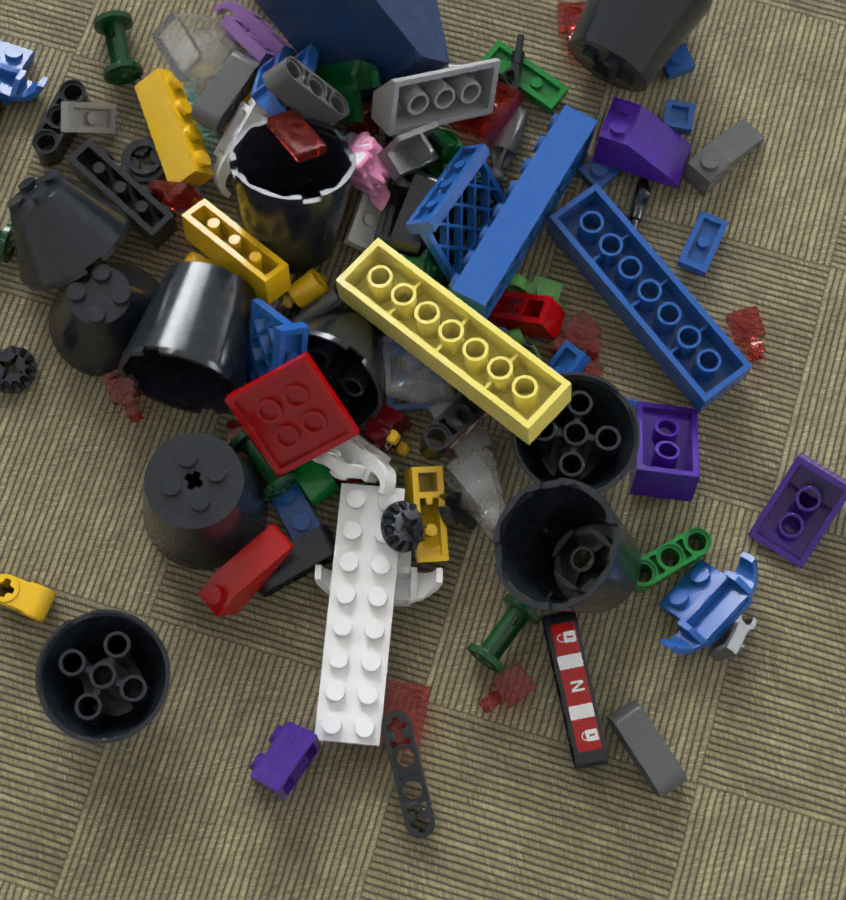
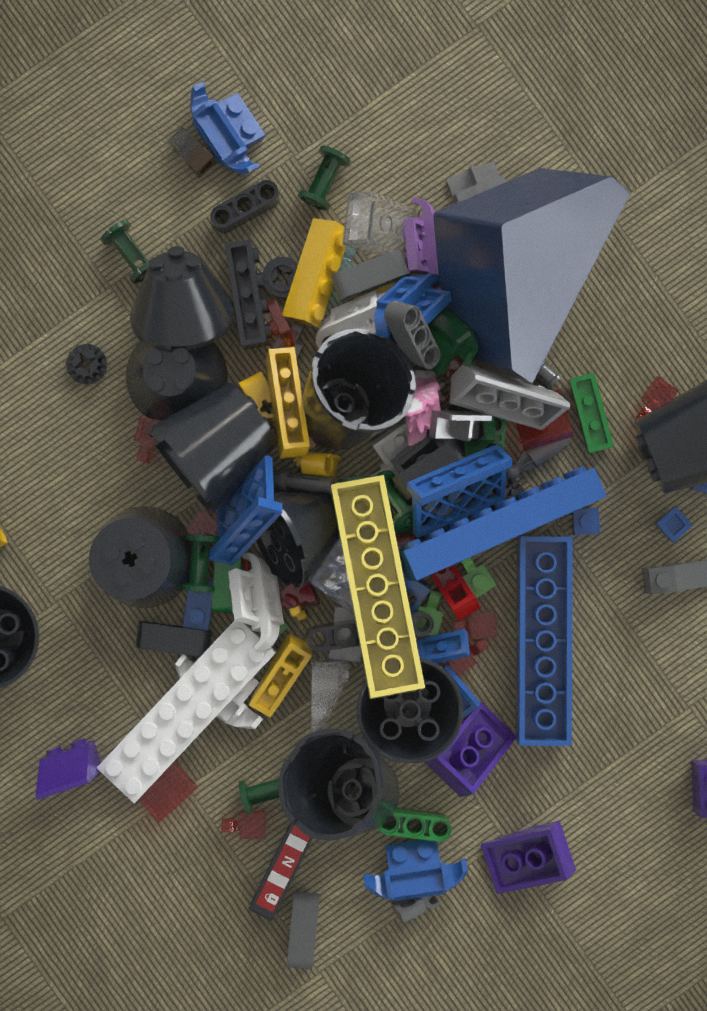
camera: 40 degrees right, 15 degrees up
(88, 117) = (263, 220): light grey plate -> none
(245, 572) = (132, 628): red slope -> none
(292, 414) = (231, 557): red plate -> none
(296, 135) = (380, 363): clear red plate -> none
(393, 520) = (247, 673): black gear -> none
(411, 773) = (142, 833): black beam -> none
(454, 513) = (299, 690): black bar -> none
(516, 64) = (591, 402): black hand -> none
(639, 201) = (599, 562): black hand -> none
(641, 144) = (629, 528): dark purple slope -> none
(702, 243) = (614, 628): blue plate -> none
(748, 329) = (595, 707): clear red plate -> none

